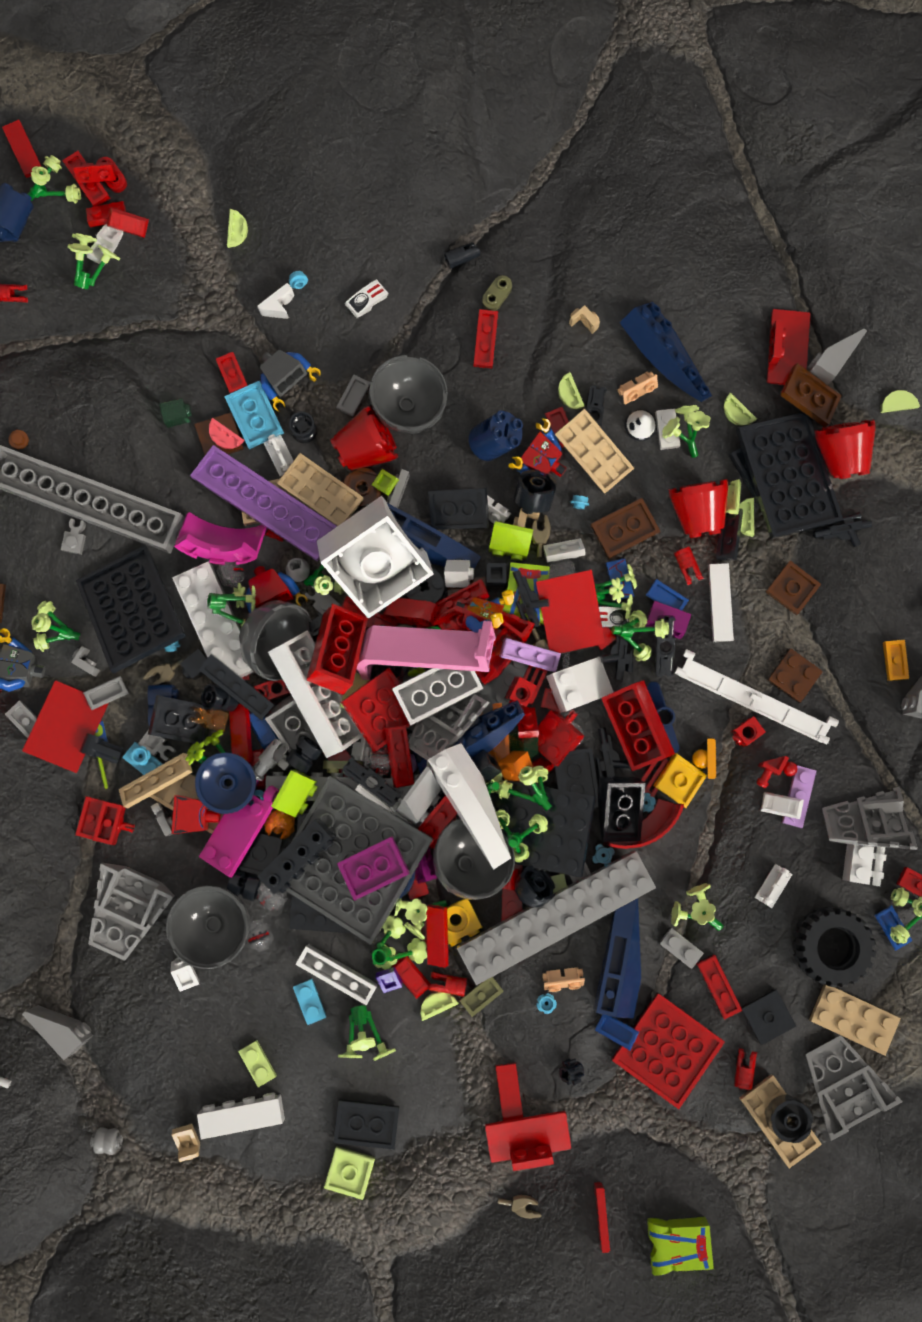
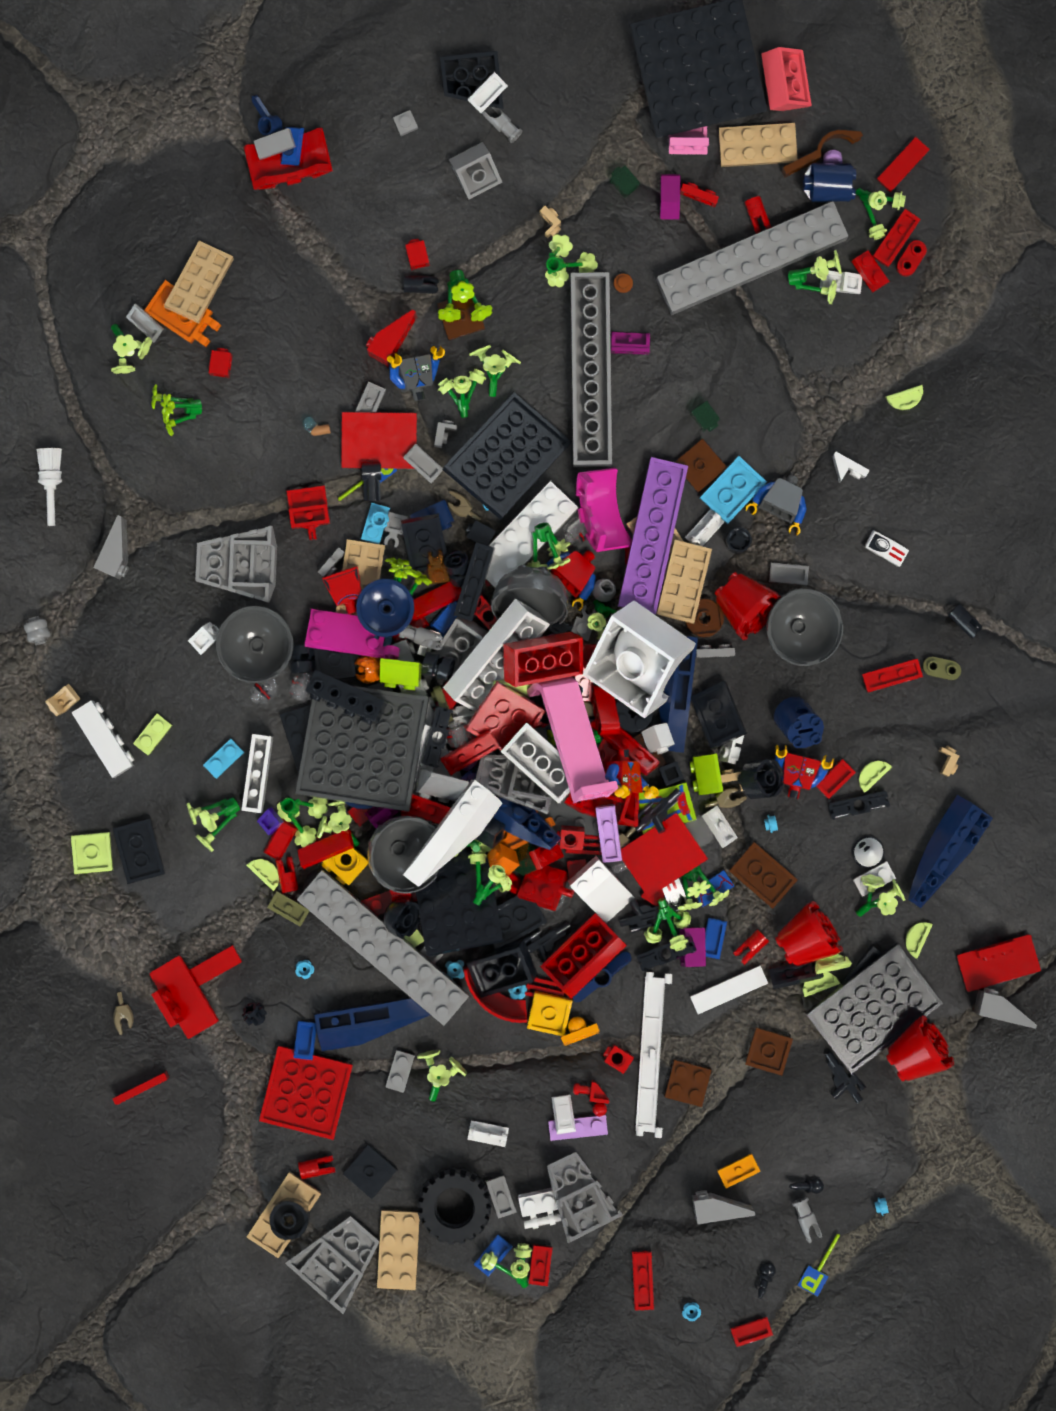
camera: 75 degrees right, 5 degrees up
(28, 784) = (314, 429): none -> arm
(38, 585) = (494, 365): none -> yellowish green plant
(46, 313) = (752, 258): none -> light grey brick
(74, 541) = (549, 373): light grey plate -> none
(78, 454) = (630, 343): none -> magenta hinge
(94, 173) = (908, 253): red hinge -> none
(127, 222) = (869, 295): red tile -> none
(155, 780) = (362, 542): tan plate -> none
(223, 436) = (700, 471): coral tile -> none
(231, 372) = (764, 452): red plate -> none
(298, 279) = (878, 477): medium azure plate -> none
(373, 868) = (362, 769): magenta plate -> none
(385, 482) = (716, 637): lime tile -> none
(537, 825) = (457, 899): plant -> none
(556, 982) = (333, 983): light nougat hinge -> none
(594, 451) = (823, 818): tan plate -> none
(645, 384) = (909, 842): light nougat hinge -> none
(680, 1245) = (144, 1164): lime piece -> none
(719, 986) = (379, 1117): red tile -> none
(810, 395) = (957, 1000): reddish brown plate -> none
(839, 897) = (501, 1196): none -> light grey plate
(899, 401) = (988, 1085): yellowish green tile -> none

